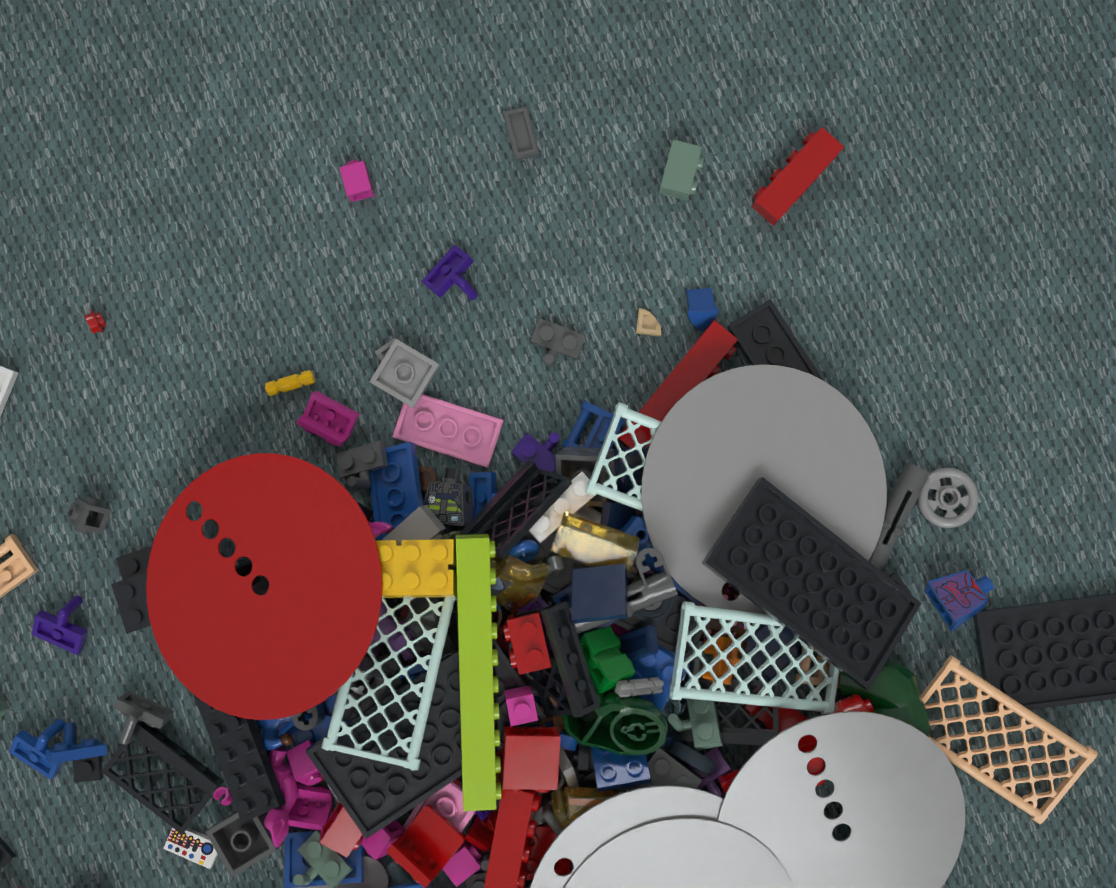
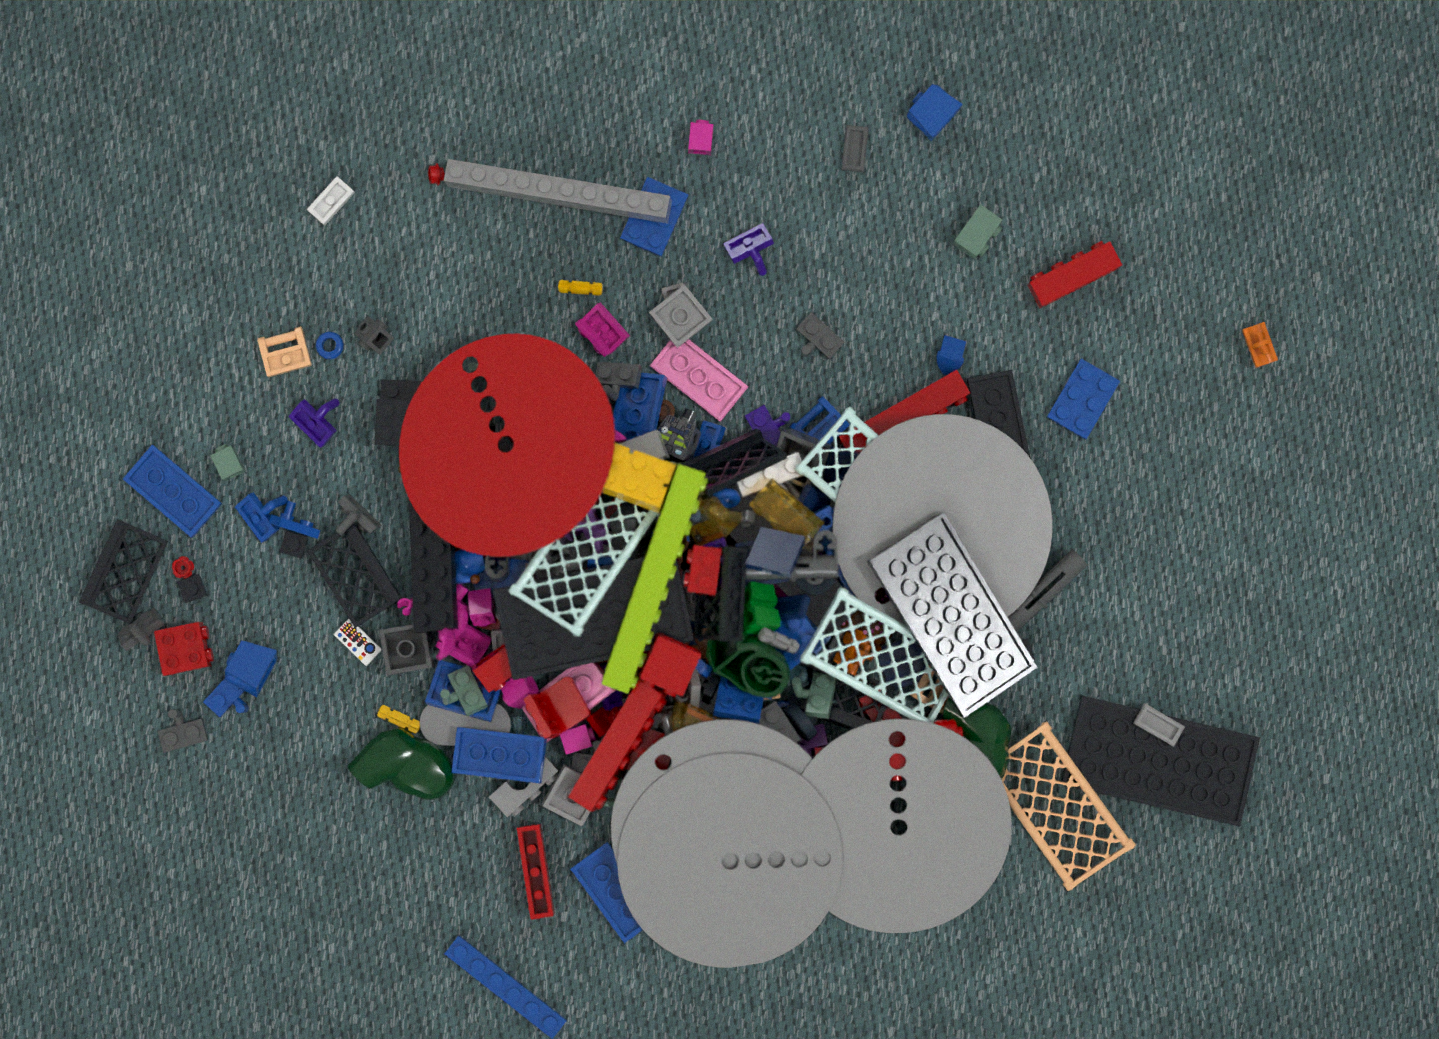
camera: 15 degrees right, 0 degrees up
(59, 545) = (336, 352): none -> blue piece
(226, 290) = (558, 191): none -> light grey brick
(339, 280) = (650, 234): none -> blue plate
(520, 705) = (678, 618): dark pink brick -> none
(586, 63) = (933, 110): none -> blue torso
(647, 324) = (900, 351): tan tile -> none
(855, 301) = (1083, 399): none -> blue plate
(958, 597) = (1072, 676): blue torso -> none
(968, 501) = (1089, 574): light grey plate -> none
(1017, 176) = (1259, 345): none -> orange hips
(1069, 613) = (1158, 724): none -> light grey tile

